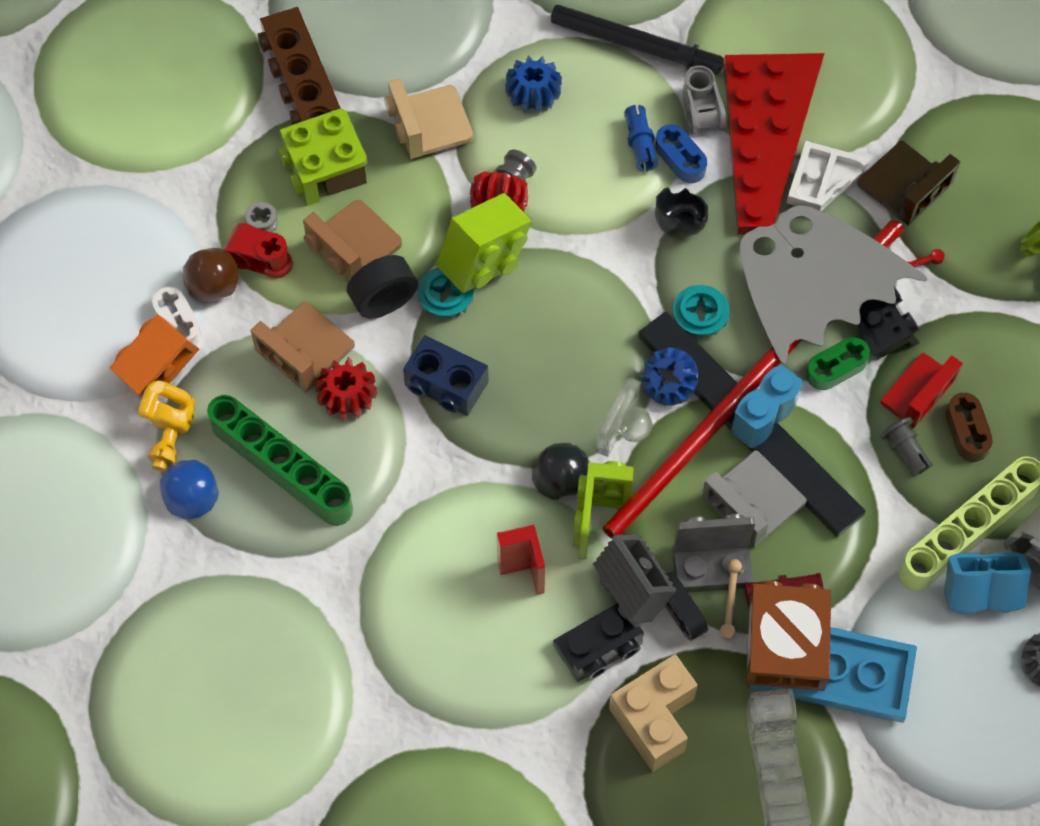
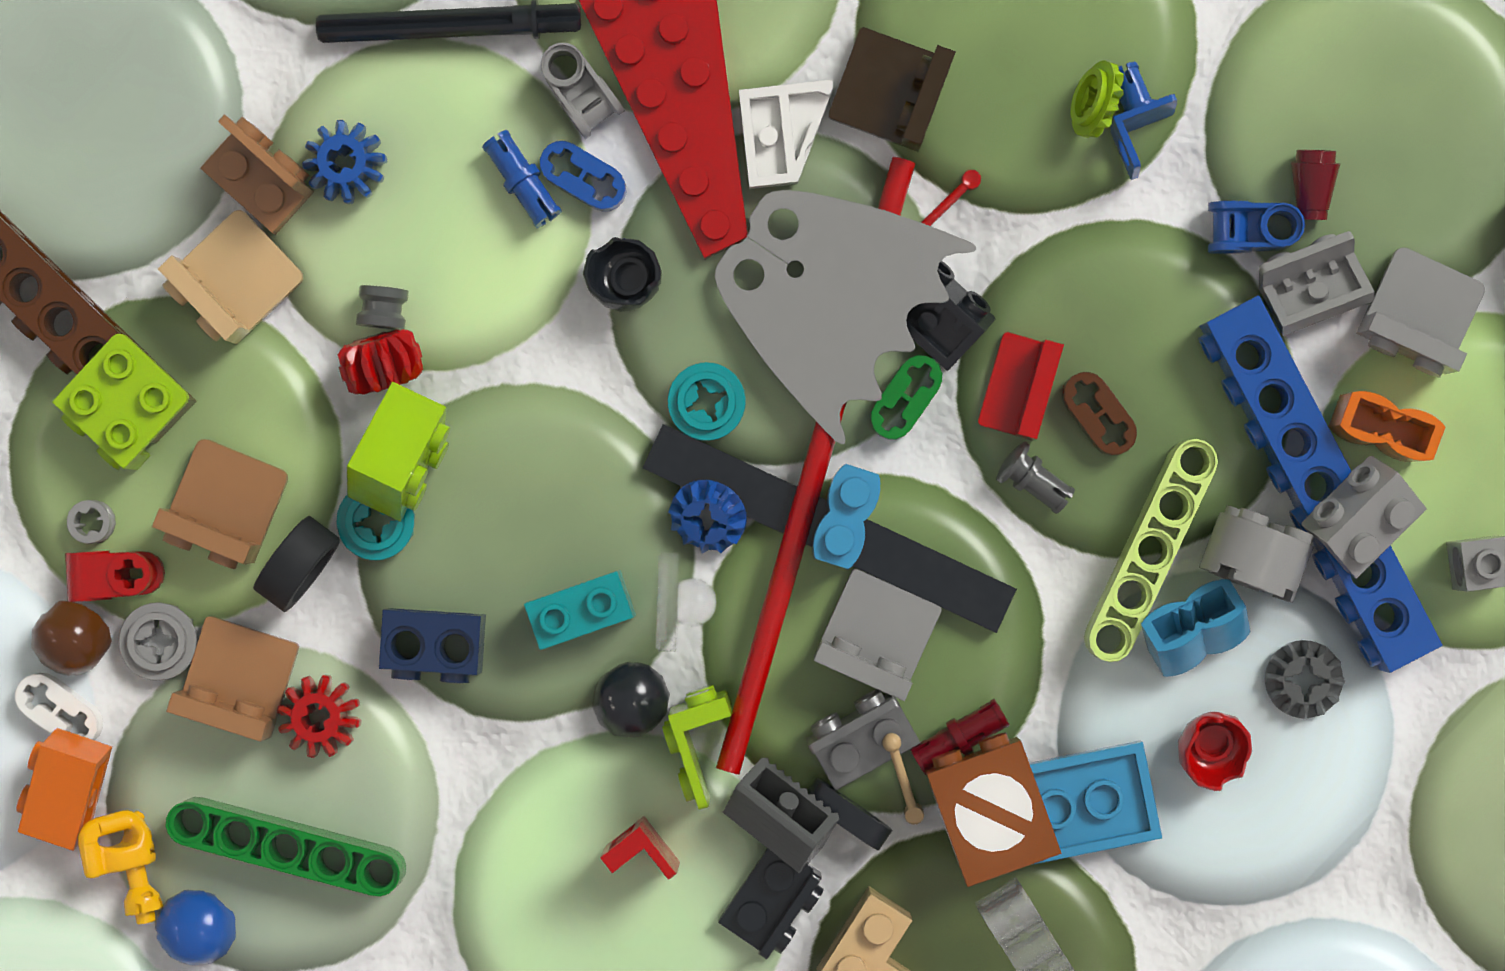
camera: 20 degrees left, 25 degrees up
(258, 292) = (144, 658): none -> light grey gear
(477, 67) = (261, 182): none -> medium nougat bracket
(555, 395) = (580, 610): none -> teal brick
(969, 673) = (1214, 749): none -> red hair

